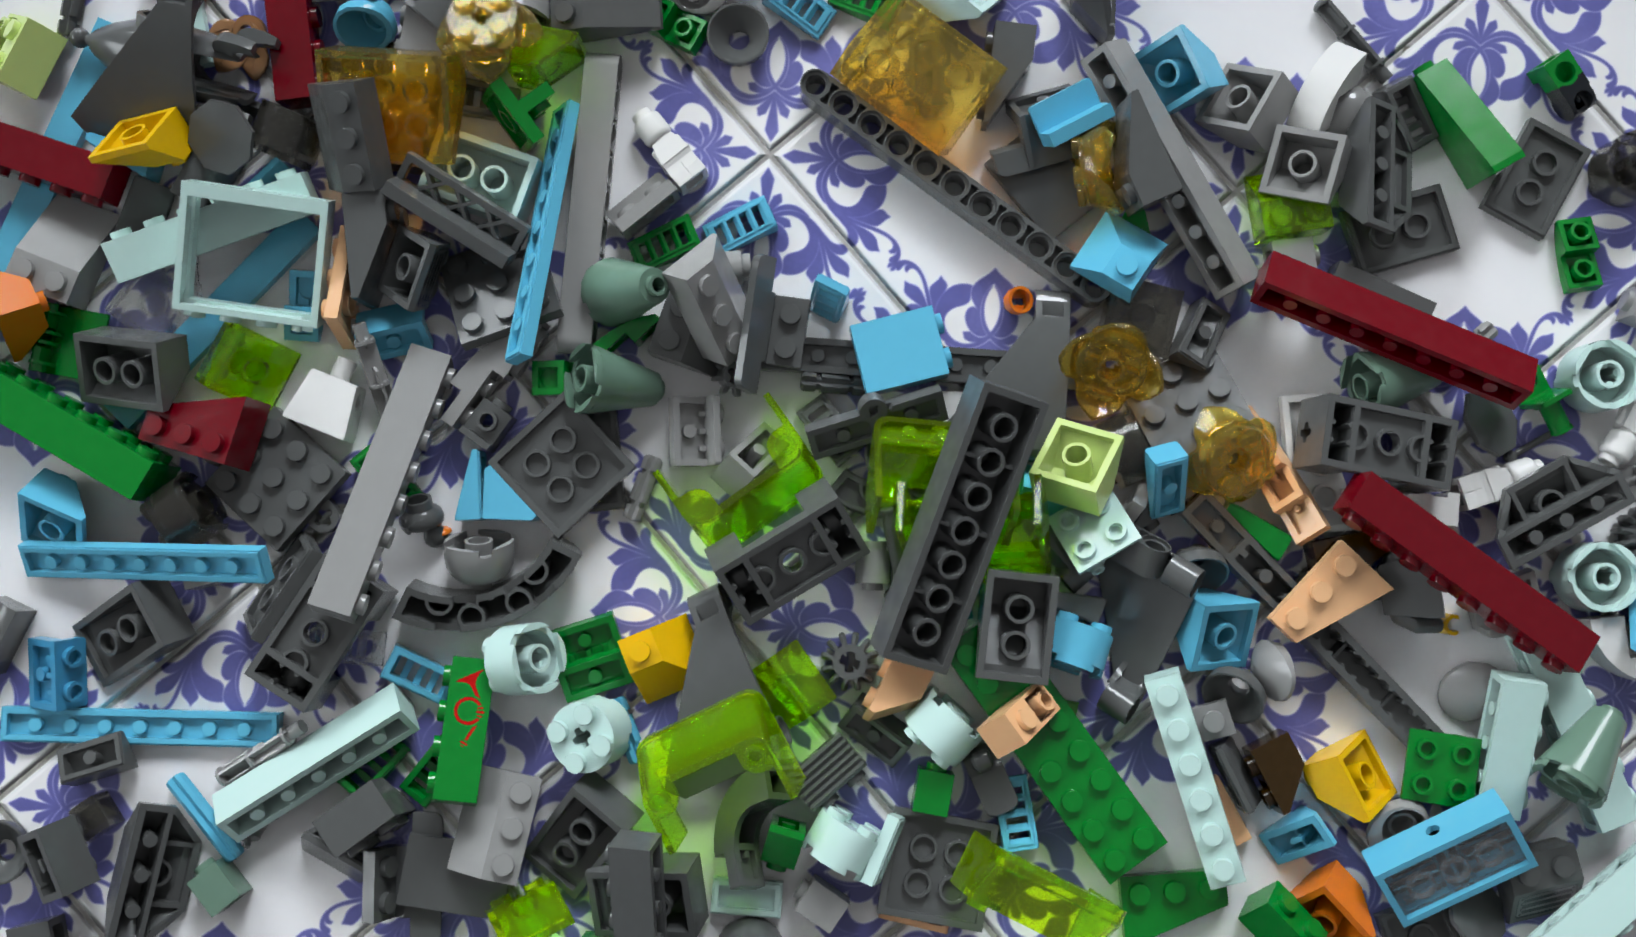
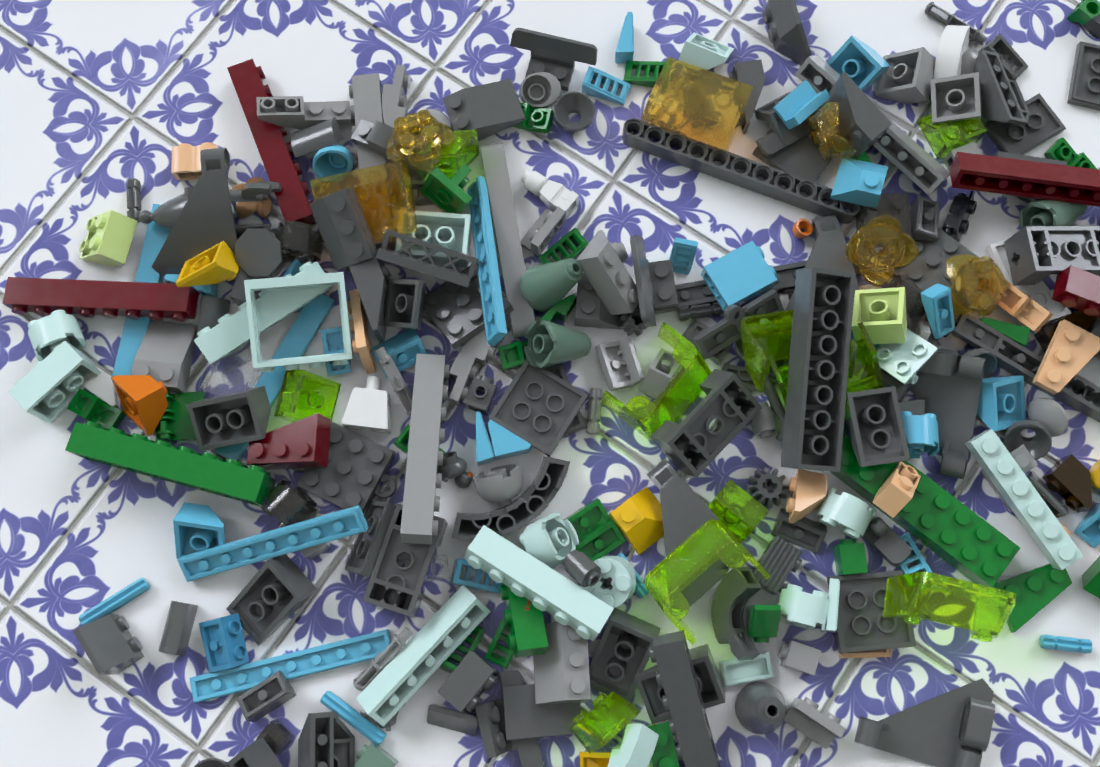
camera: 20 degrees left, 10 degrees down
(485, 713) = (538, 583): none -> light aqua brick
(550, 711) = (582, 568): none -> dark grey brick
(747, 209) = (612, 217): medium azure slope -> none
(1249, 353) = (963, 207): none -> black hinge
(1453, 304) = (1064, 152): none -> green slope
(1465, 125) = (1046, 55): green slope -> none

